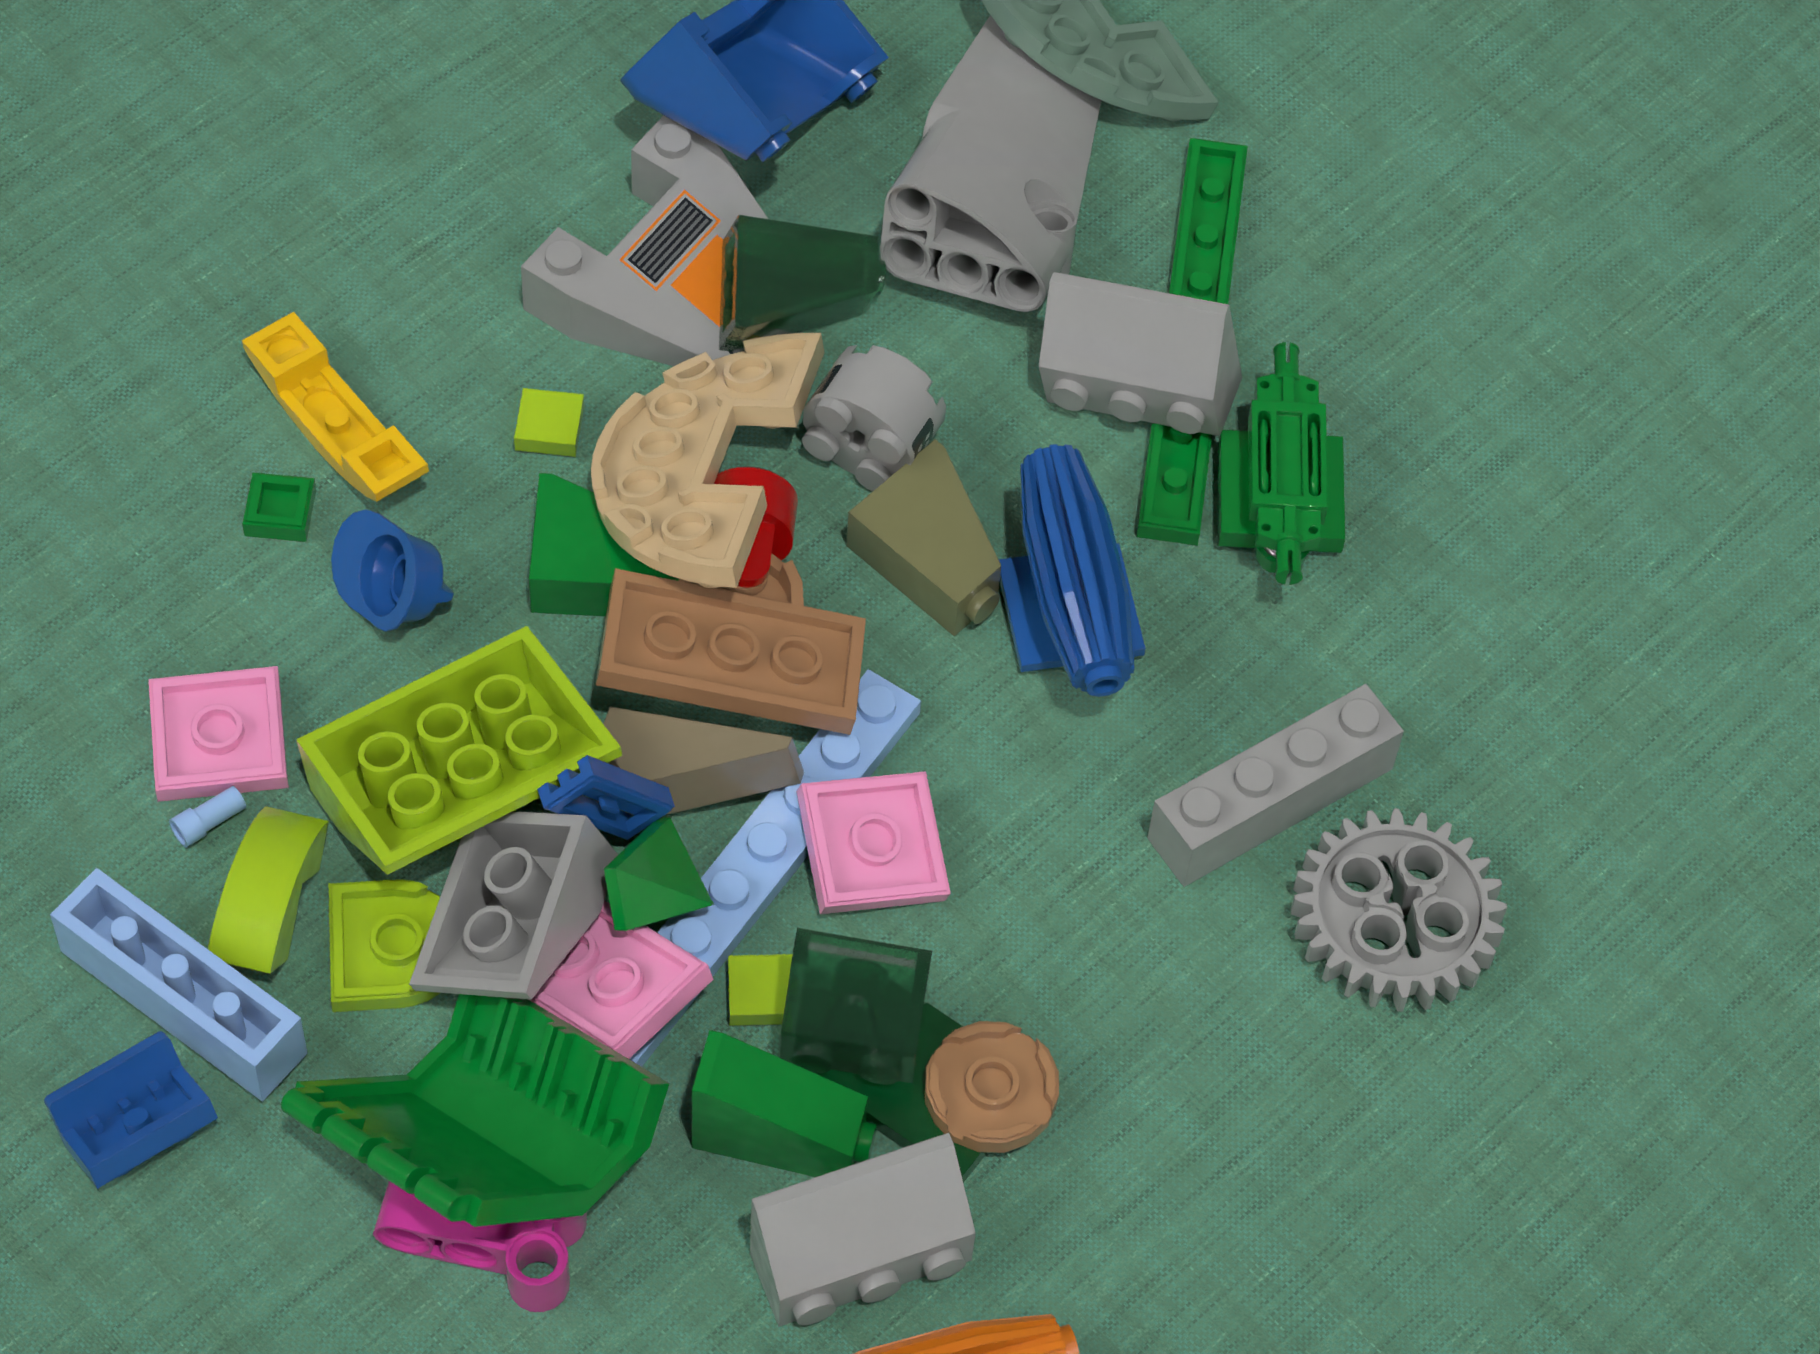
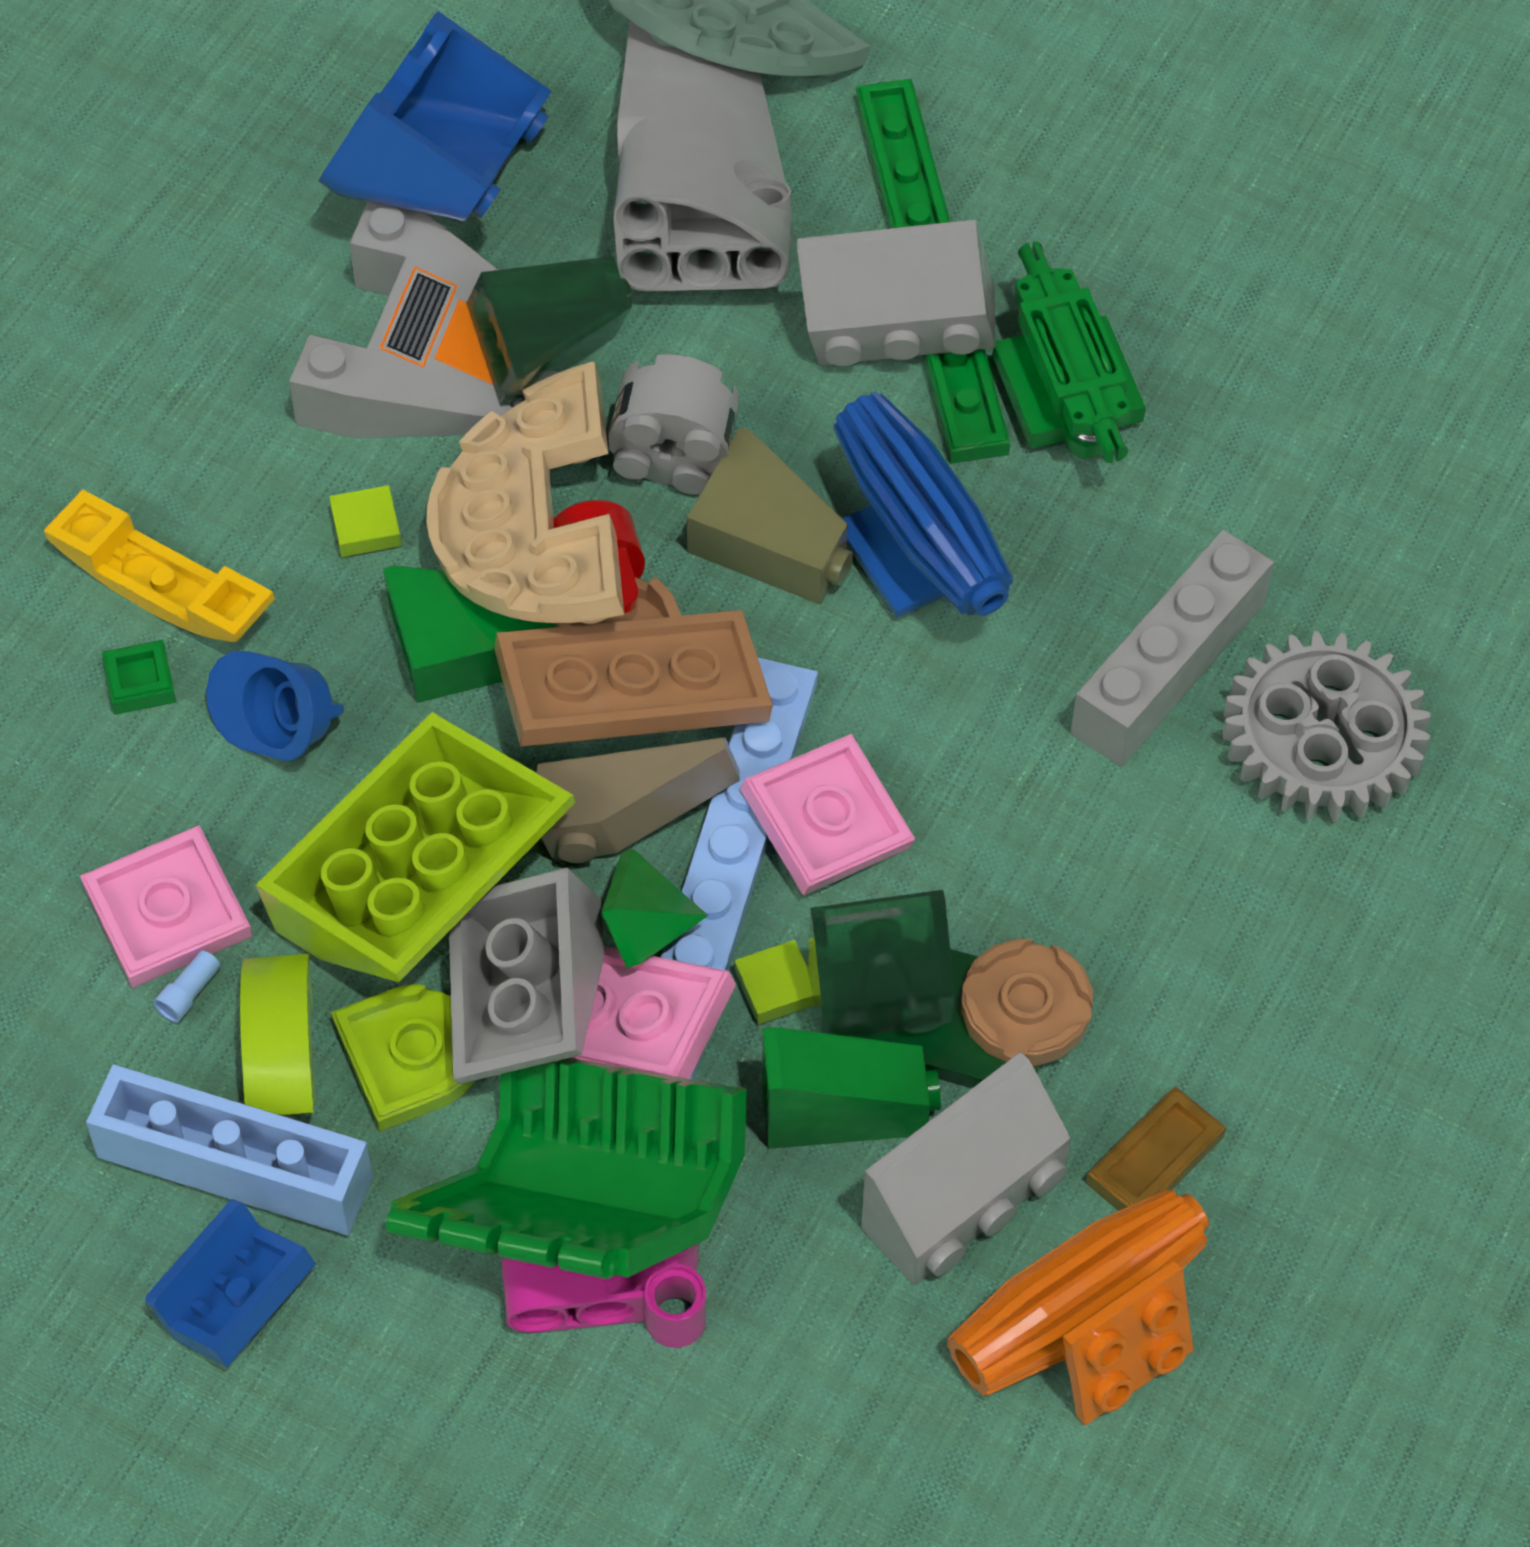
camera: 15 degrees left, 0 degrees up
(614, 791) = (582, 838): blue tile -> none
(1064, 1274) = (1156, 1151): none -> pearl gold tile

